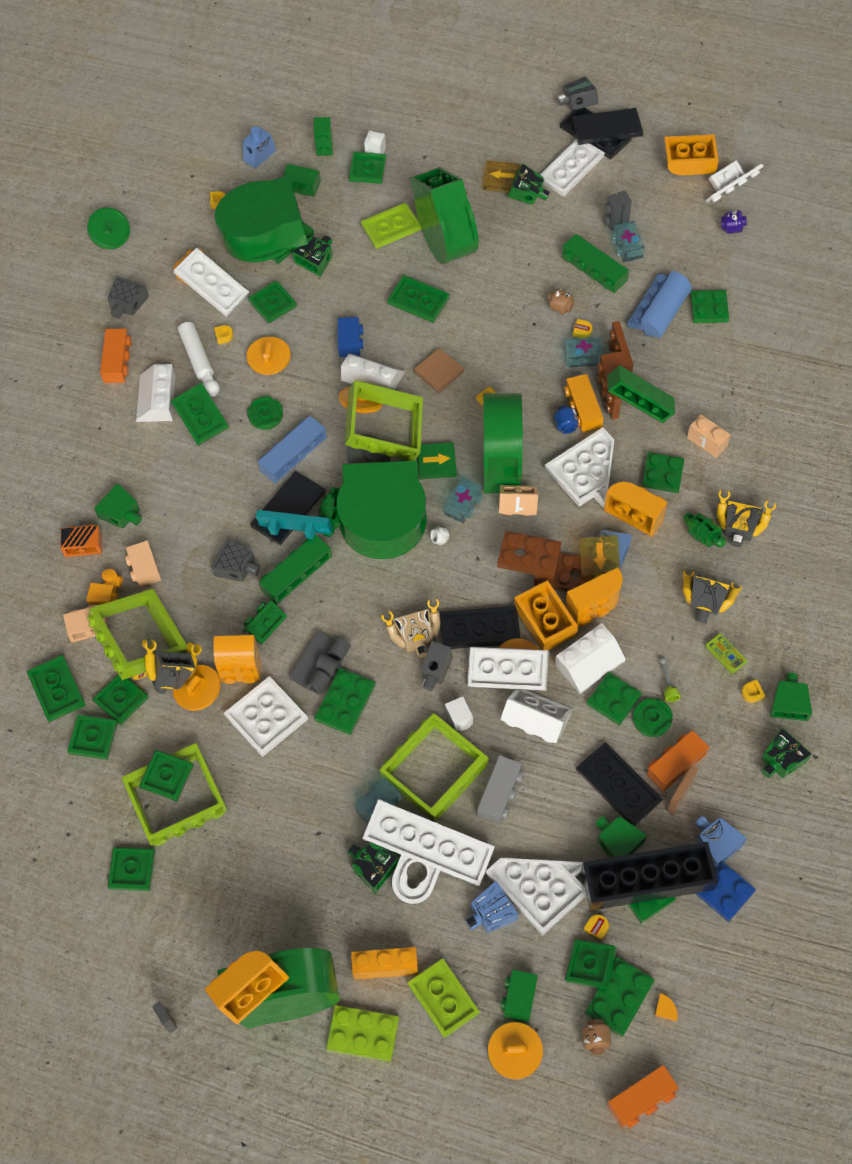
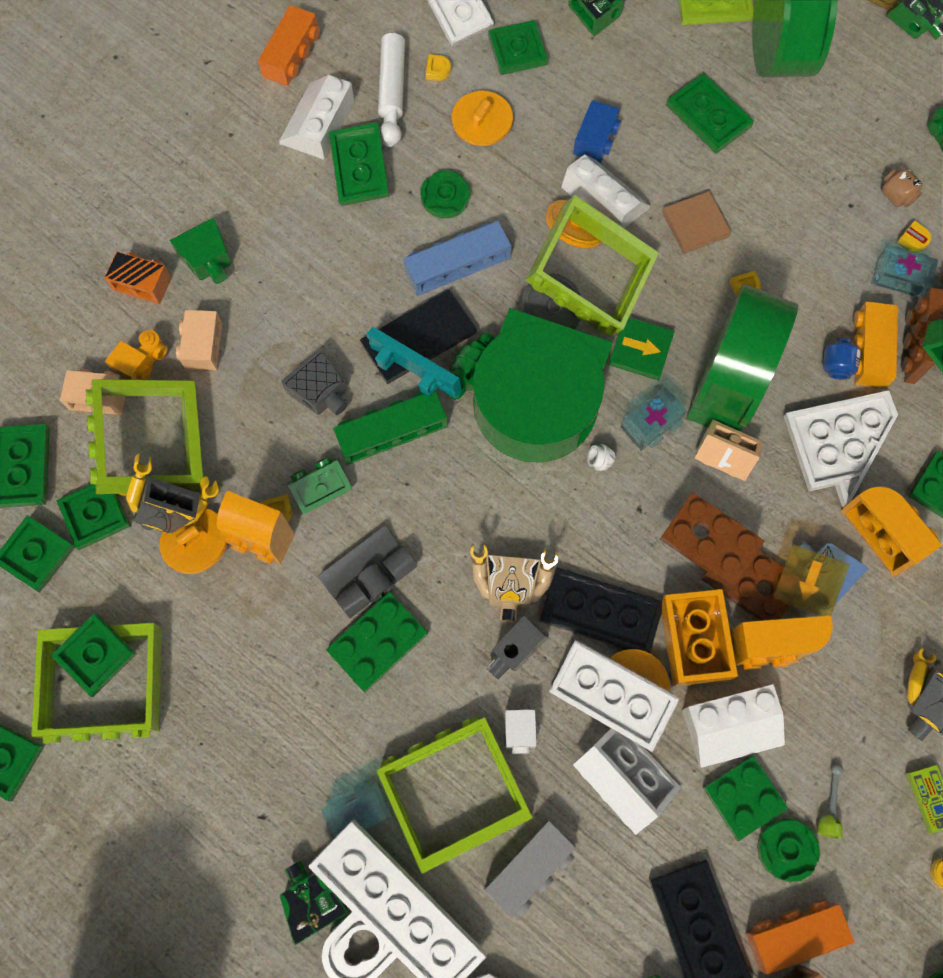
camera: 20 degrees right, 10 degrees up
(265, 716) = (263, 620): white plate -> none

